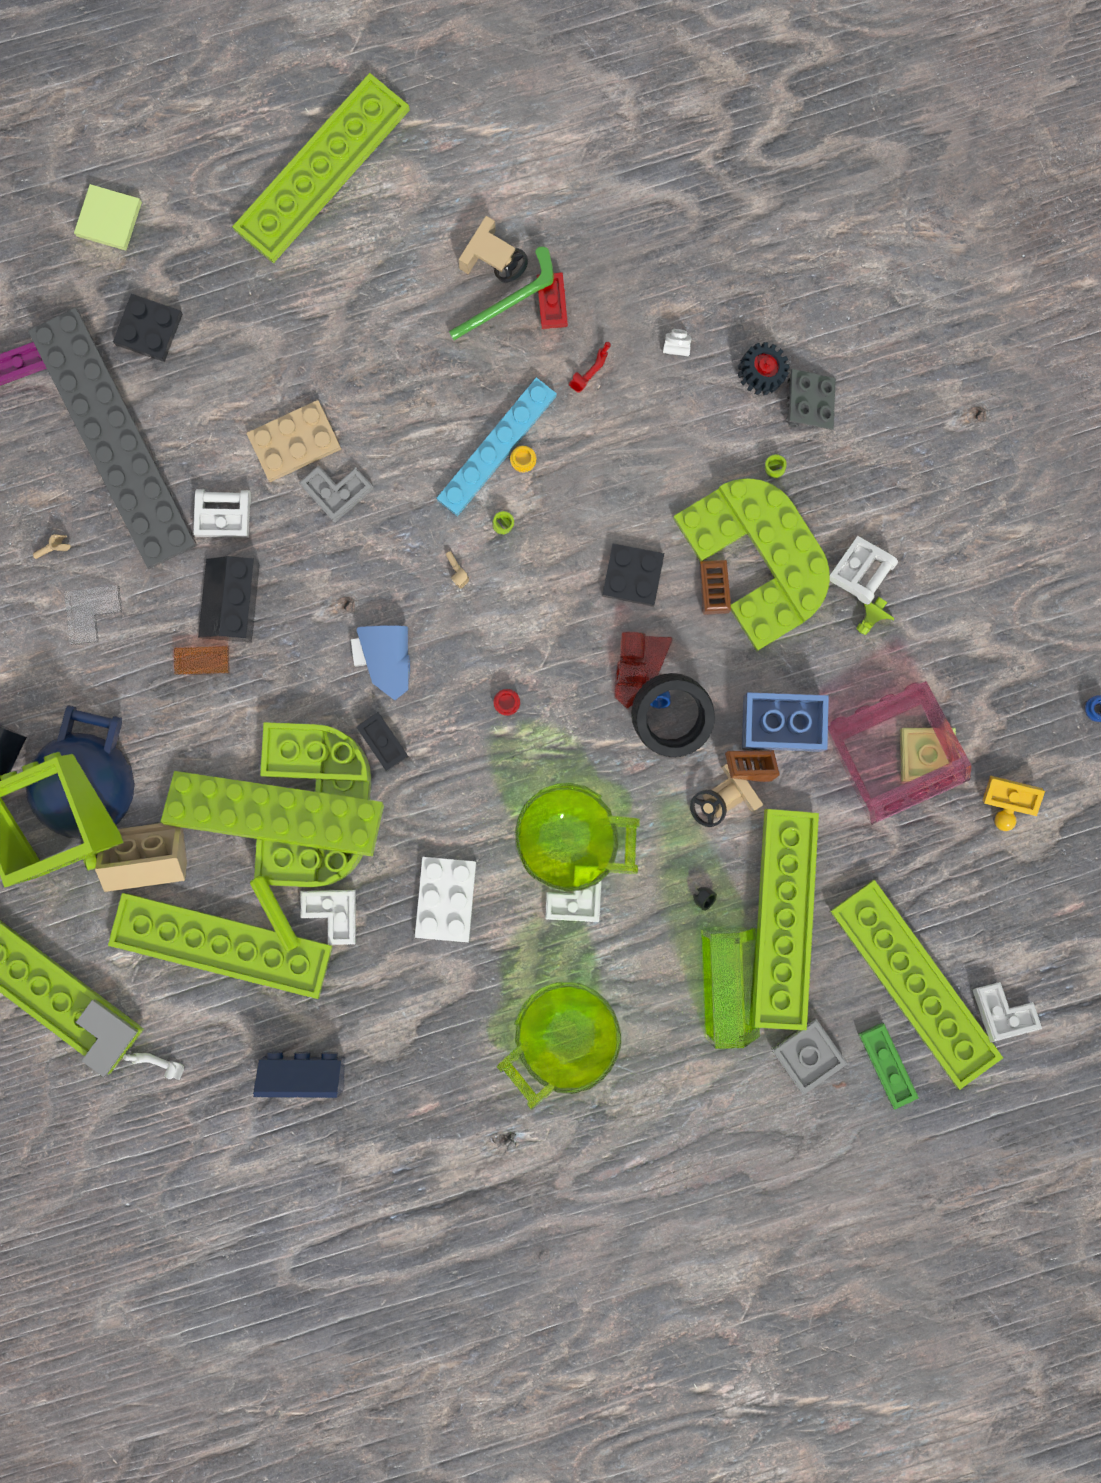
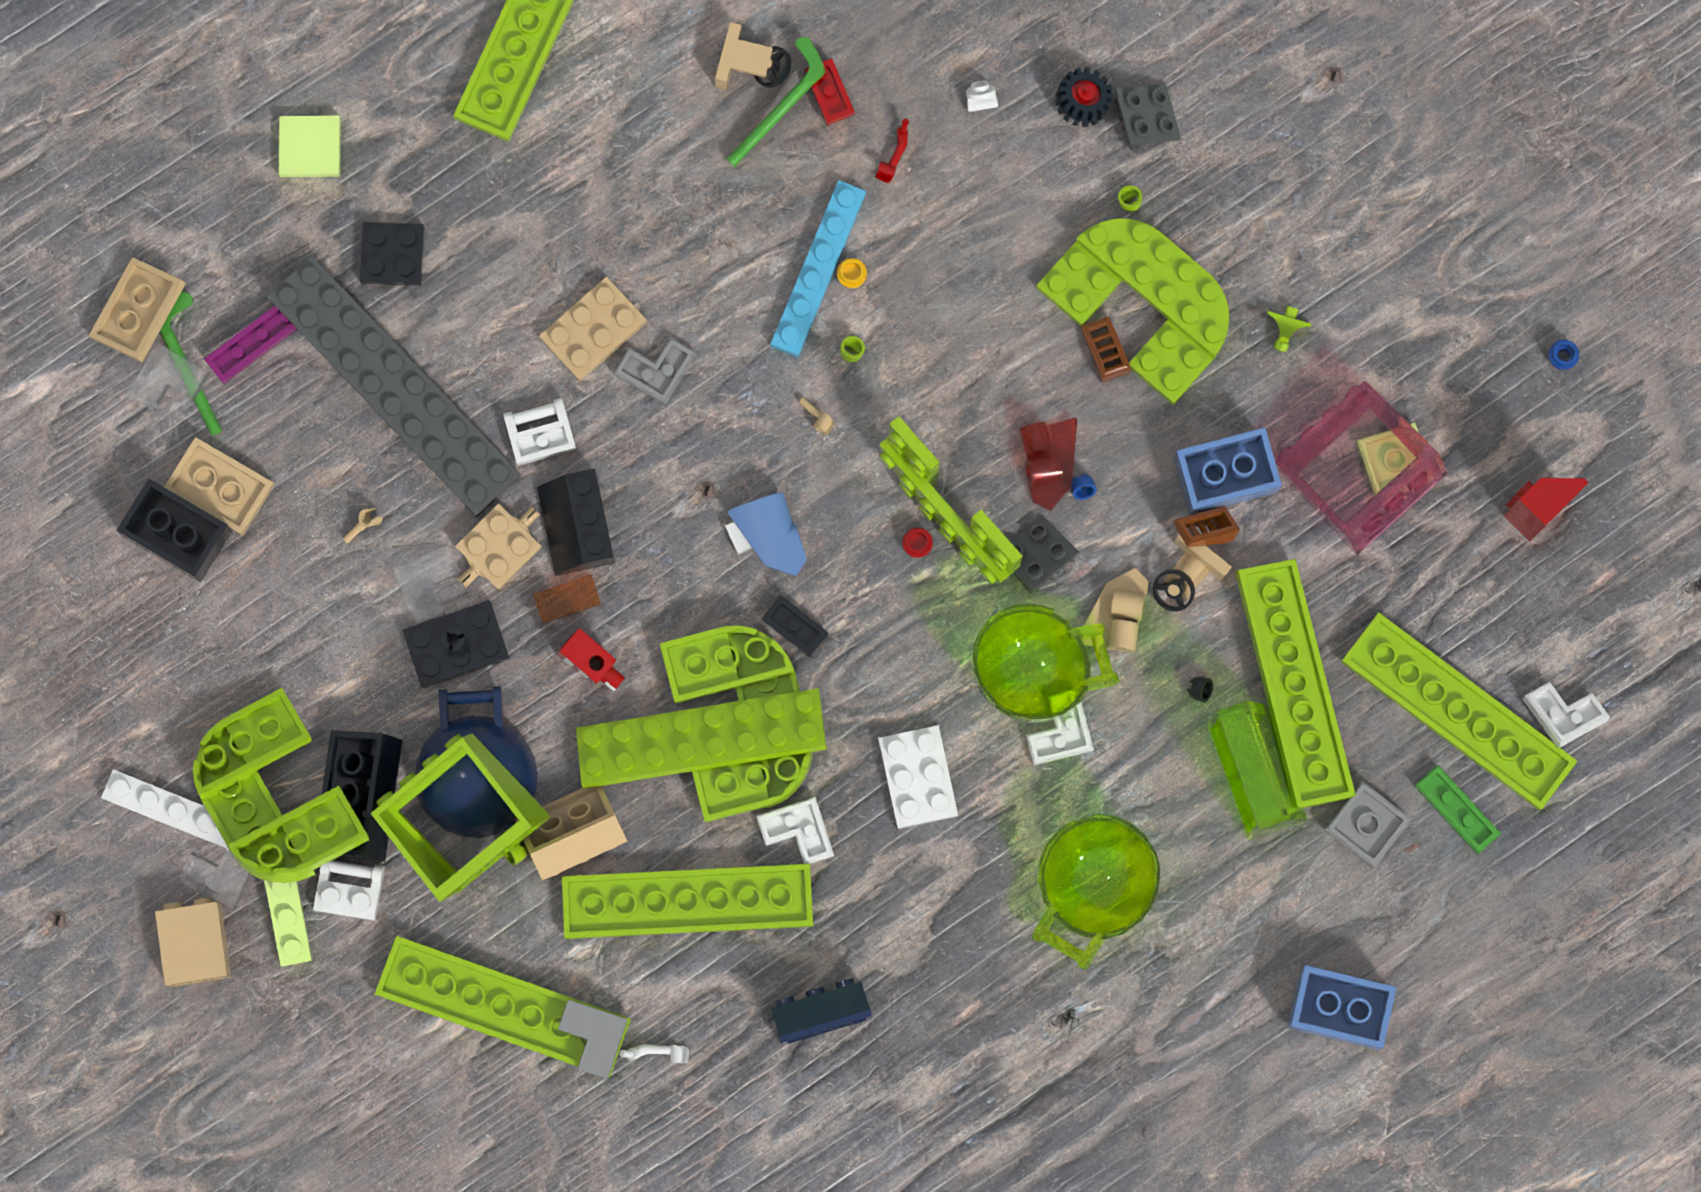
camera: 15 degrees left, 5 degrees down
(98, 670) = (455, 644): none -> black plate
(158, 599) = (498, 547): none -> tan plate
(191, 711) = (578, 652): none -> red torso
(274, 913) = (738, 845): lime axle -> none
(524, 649) = (918, 476): none -> lime plate
(603, 742) = (1042, 552): none -> dark grey hinge
(633, 574) = (1012, 363): black plate -> none
(658, 811) = (1120, 611): none -> tan panel
(695, 737) = (1140, 499): black tyre -> none
(738, 1207) = (1341, 1007): none -> medium blue brick
(855, 565) = (1251, 278): white plate -> none
(1012, 797) = (1499, 478): yellow plate -> none
(1044, 834) = (1539, 503): none -> red slope

